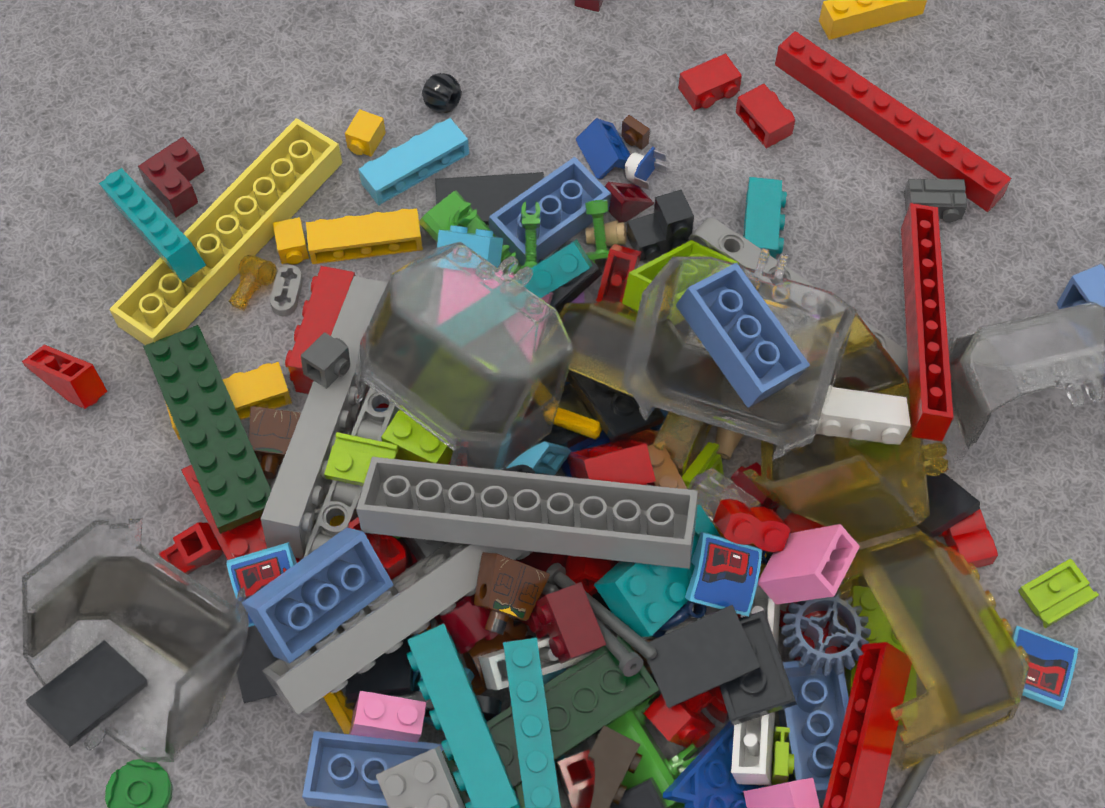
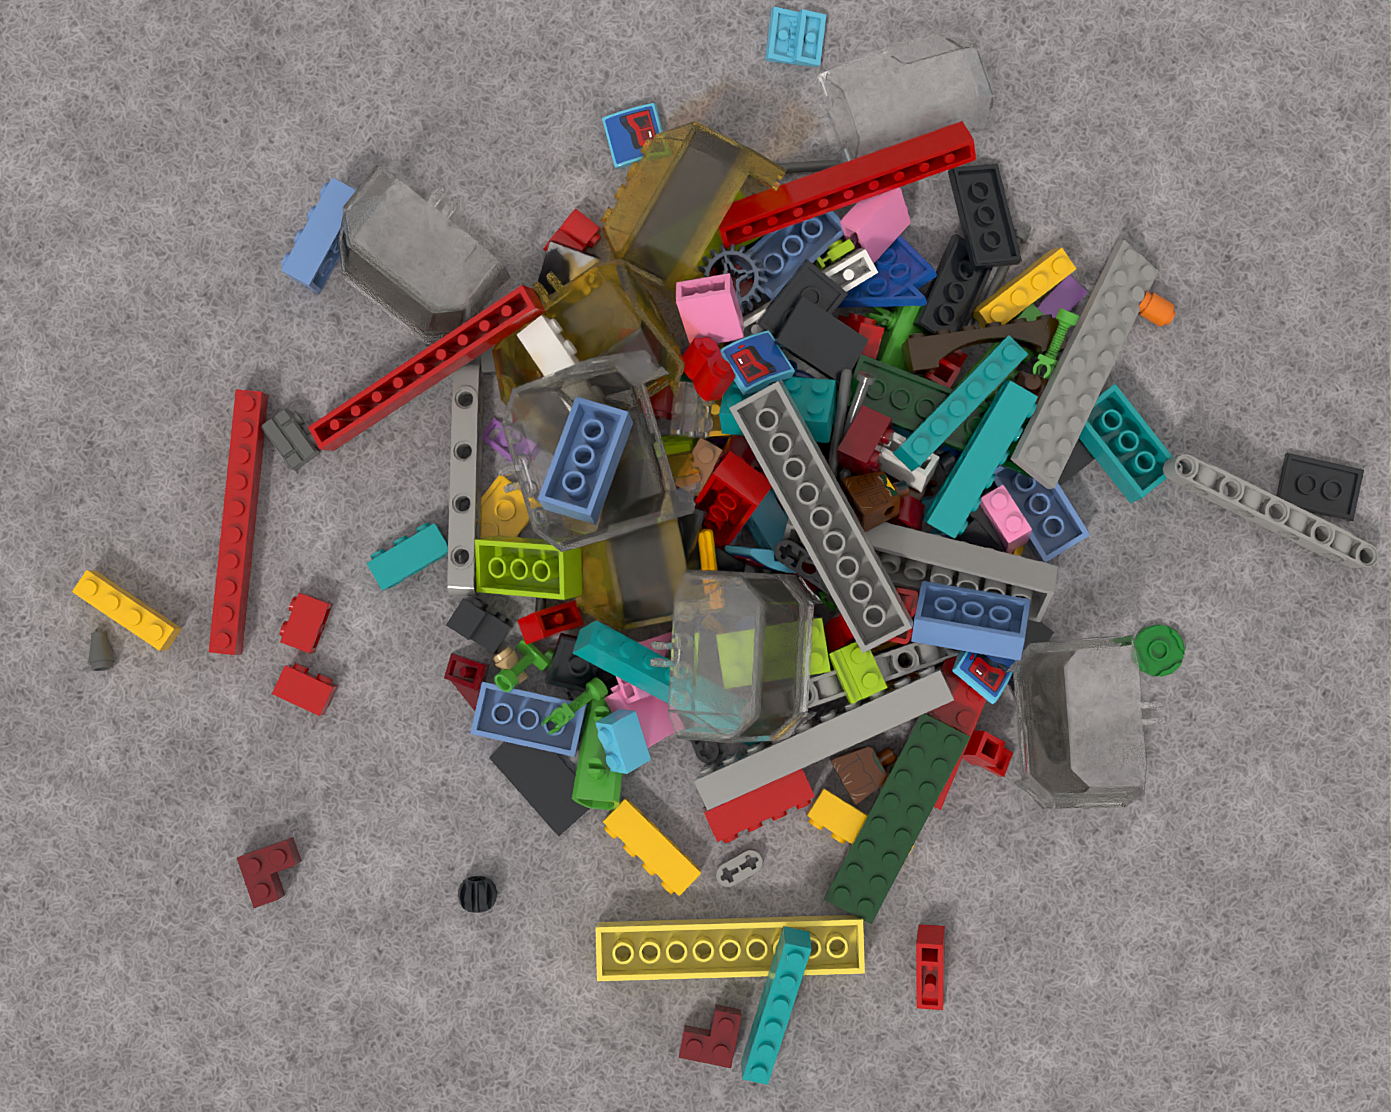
camera: 125 degrees left, 25 degrees up
(86, 693) = (1131, 733): black tile -> none
(254, 274) = (747, 899): clear yellow pin -> none
(290, 241) = (699, 897): yellow brick -> none
(326, 360) = (800, 760): dark grey brick -> none
(365, 133) = (561, 923): yellow brick -> none
(414, 161) = (556, 864): medium azure brick -> none
(602, 147) = (431, 726): blue panel -> none
(635, 132) = (401, 712): reddish brown plate -> none
(640, 167) = (430, 685): piece -> none
(1058, 592) = (569, 154): lime plate -> none

